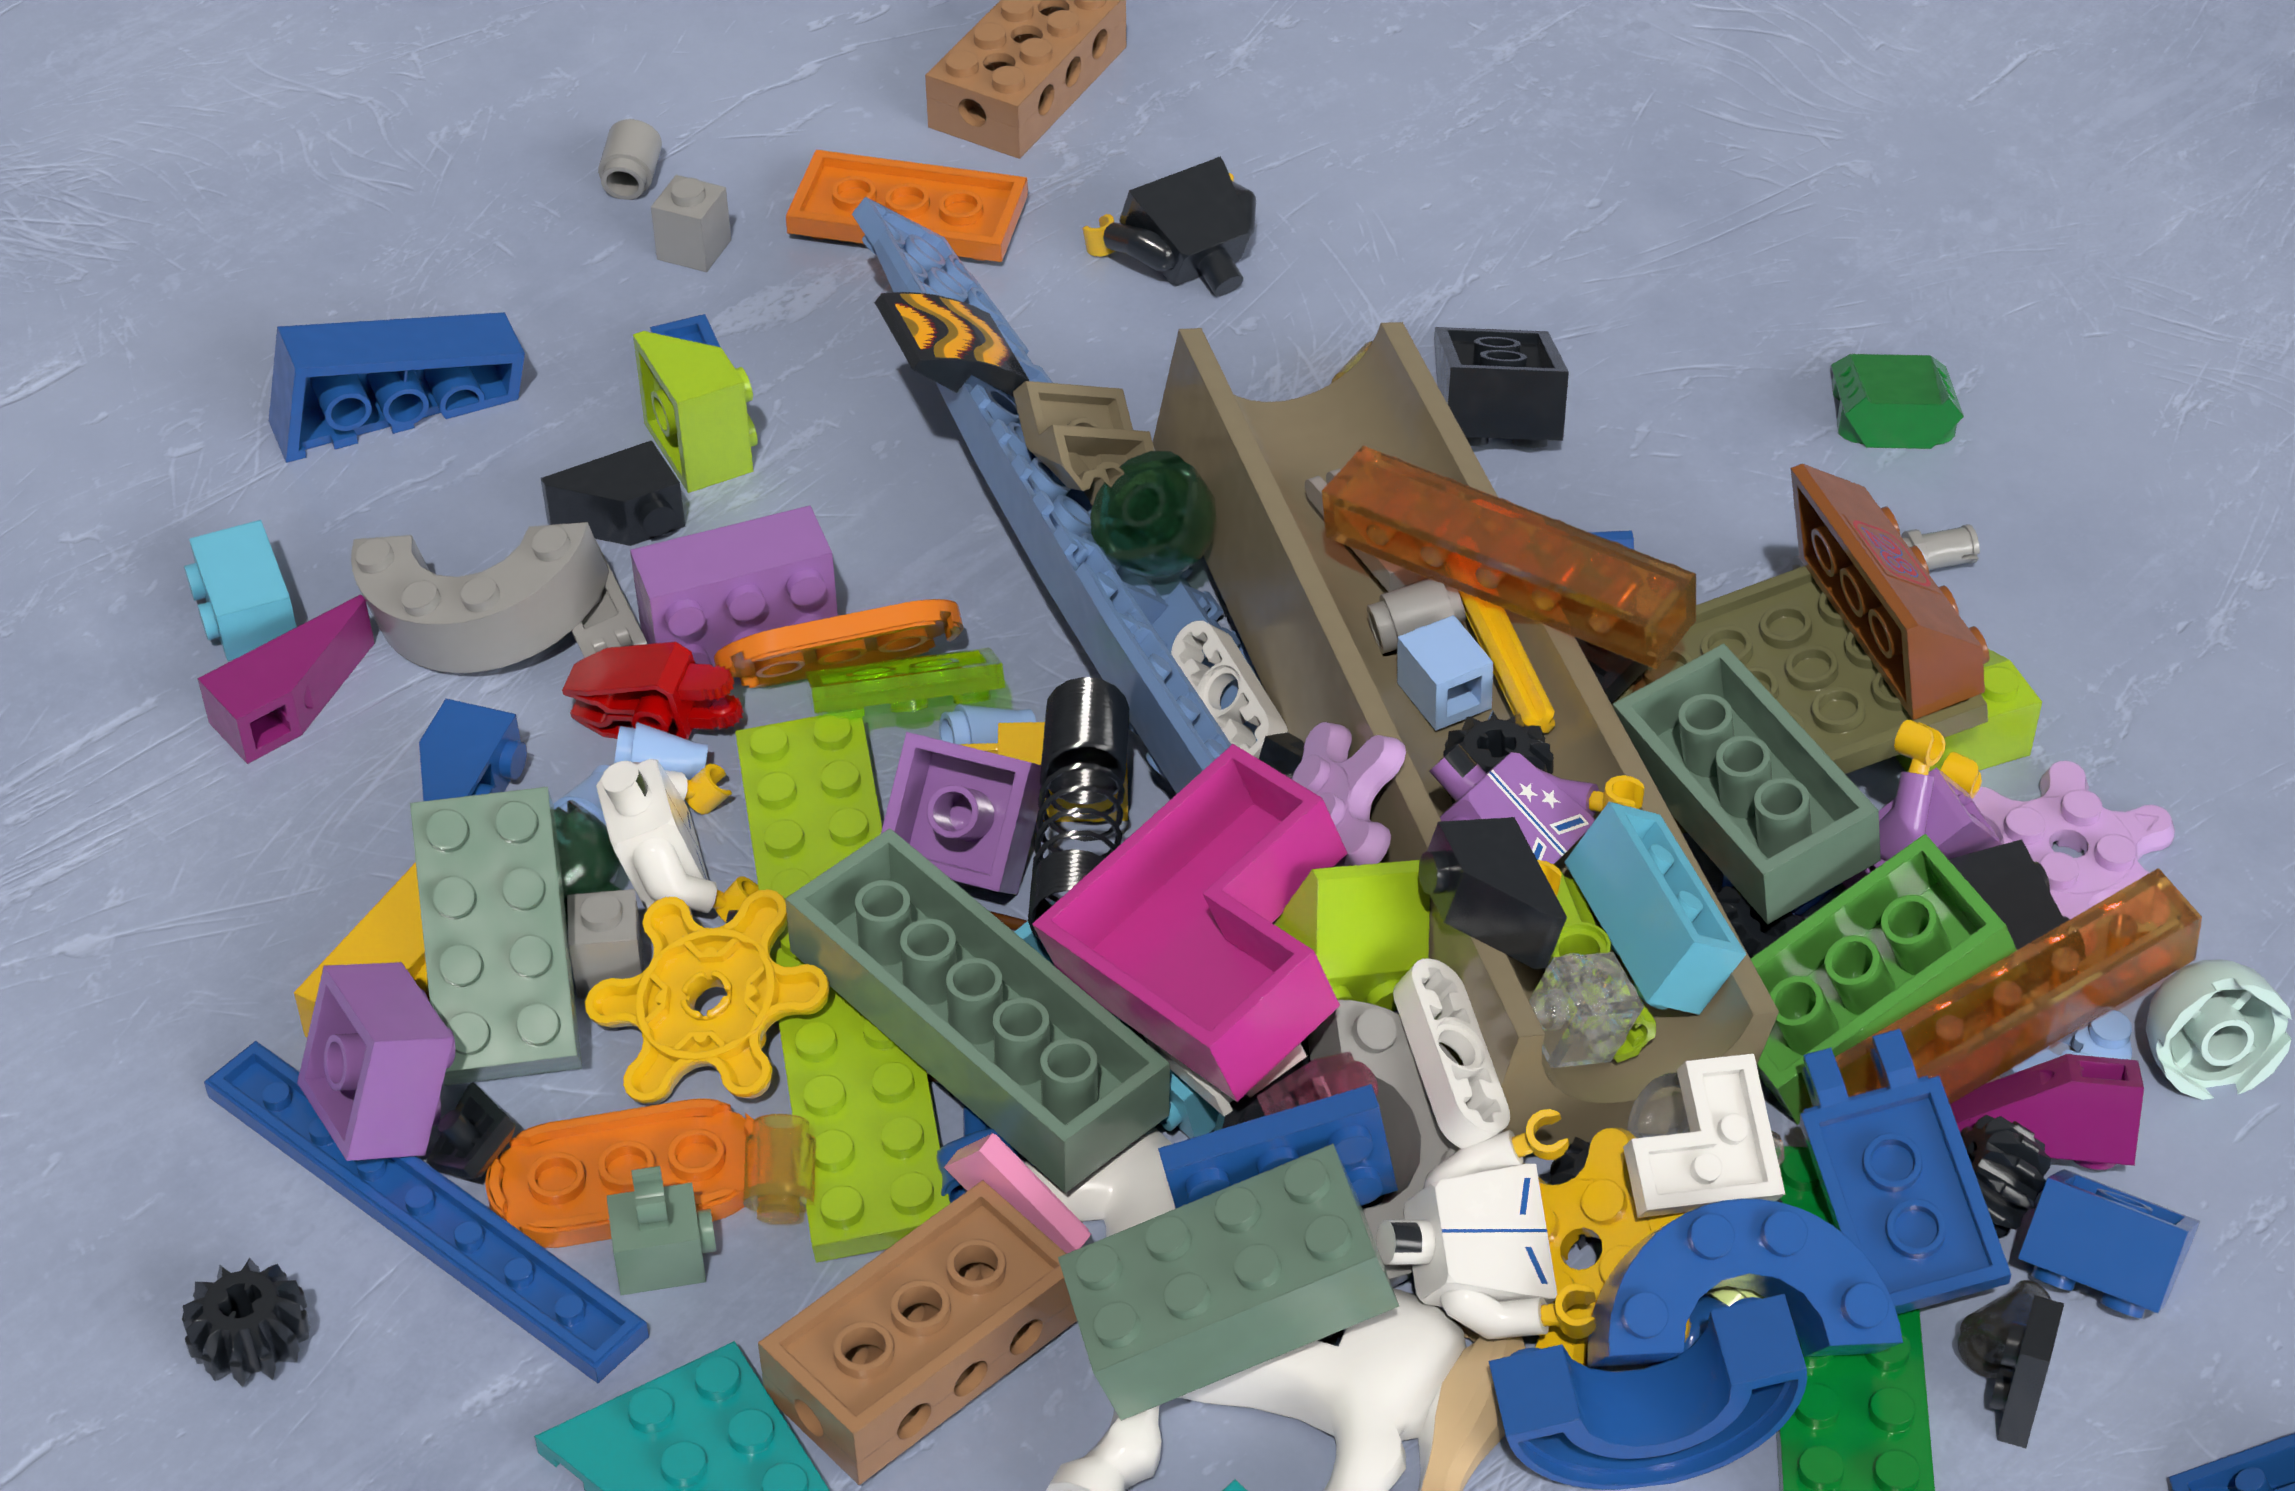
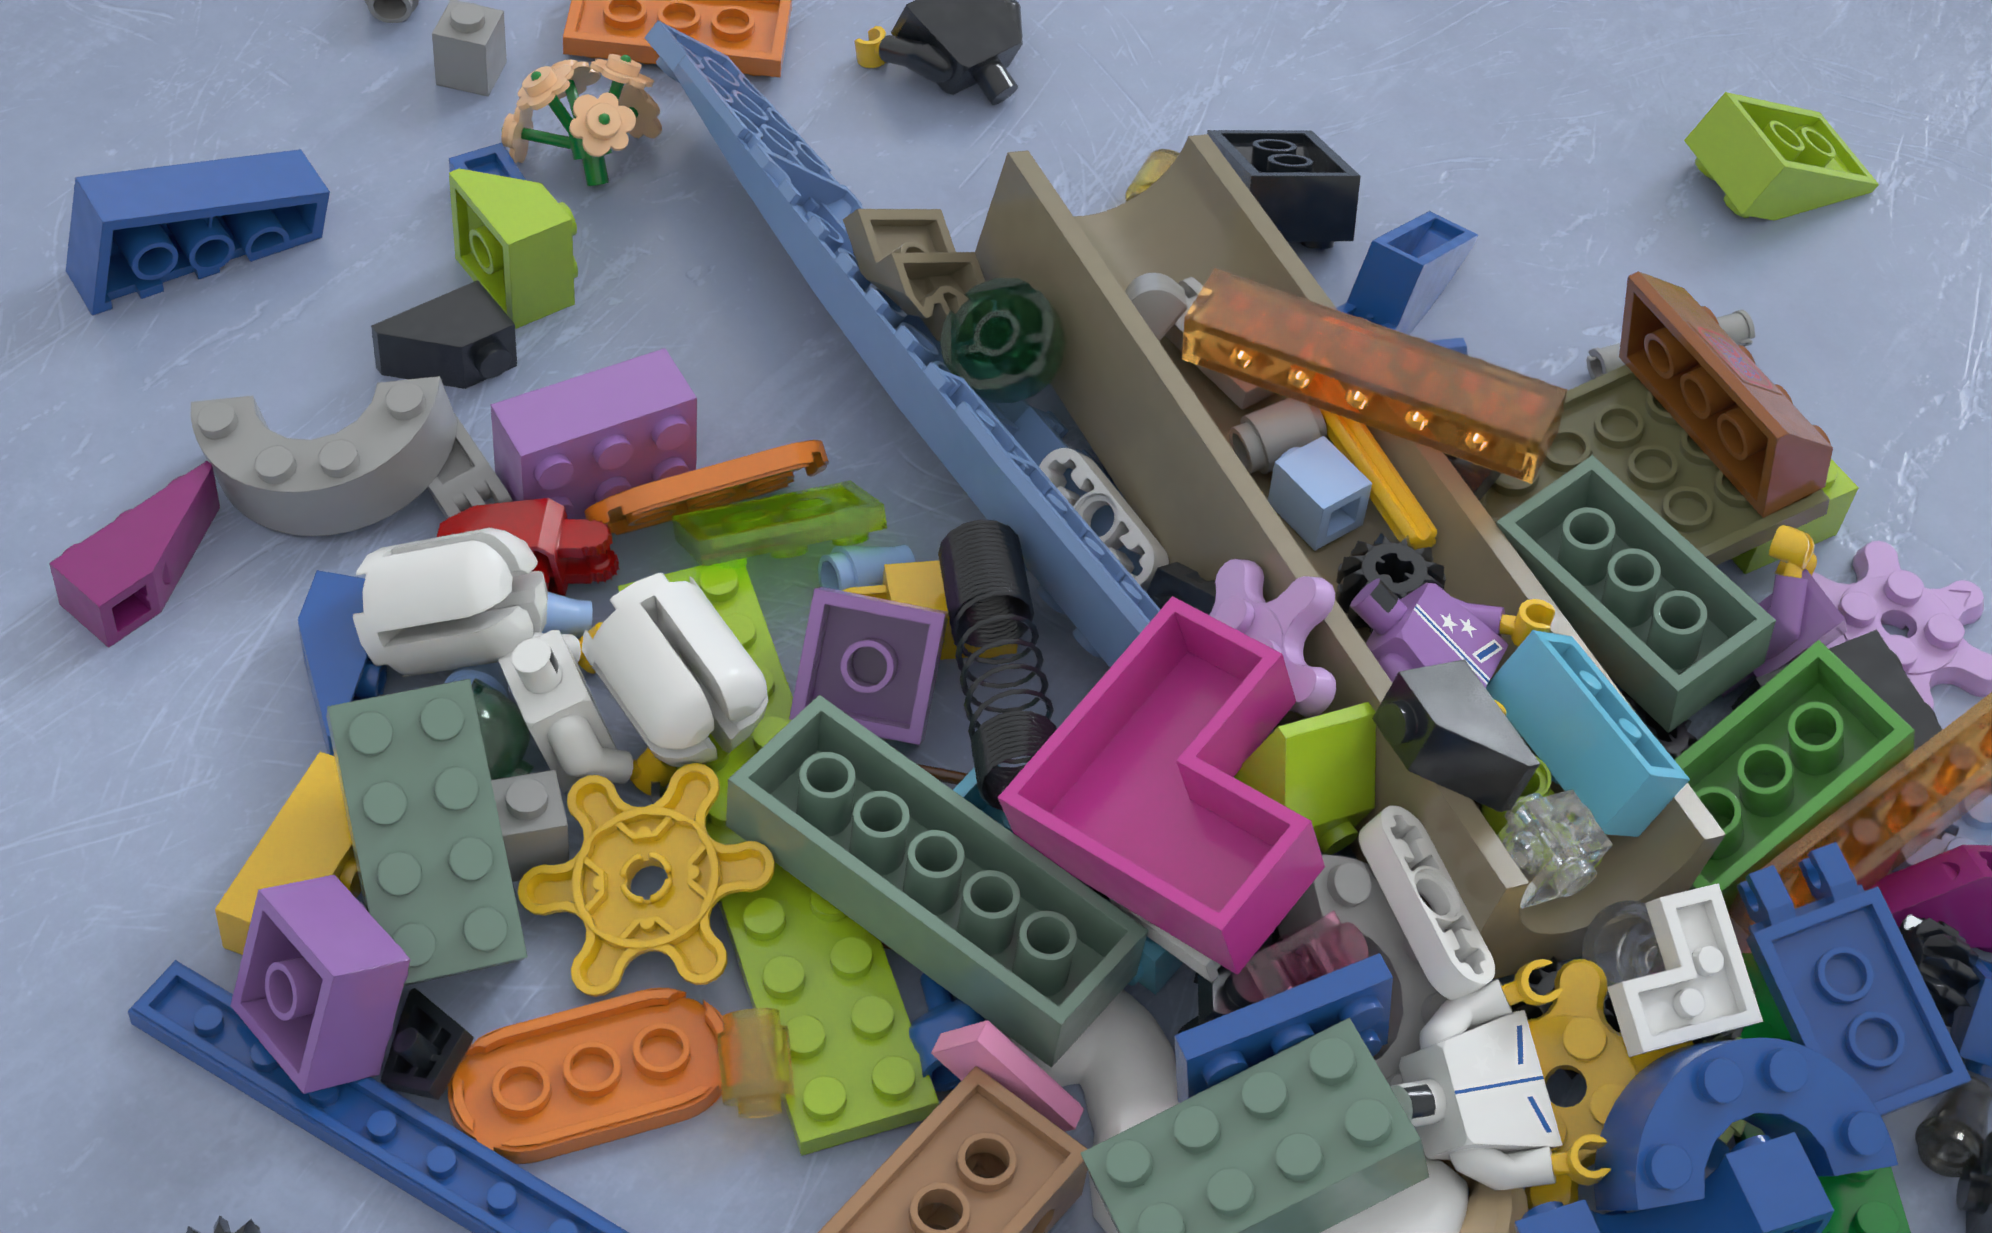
camera: 15 degrees left, 5 degrees up
(241, 588) = (74, 458): medium azure brick -> none
(563, 723) = (450, 601): none -> white cylinder
(658, 1234) = (643, 1146): sand green brick -> none
(762, 803) = (677, 671): none -> white cylinder
(792, 289) = (597, 123): none -> light nougat plant
(950, 340) = (777, 170): slope -> none
(1303, 483) = (1158, 301): none -> light grey brick
(1609, 471) = (1408, 271): none -> blue slope
(1895, 401) = (1642, 188): green slope -> none
(2050, 374) = (1775, 158): none -> lime slope

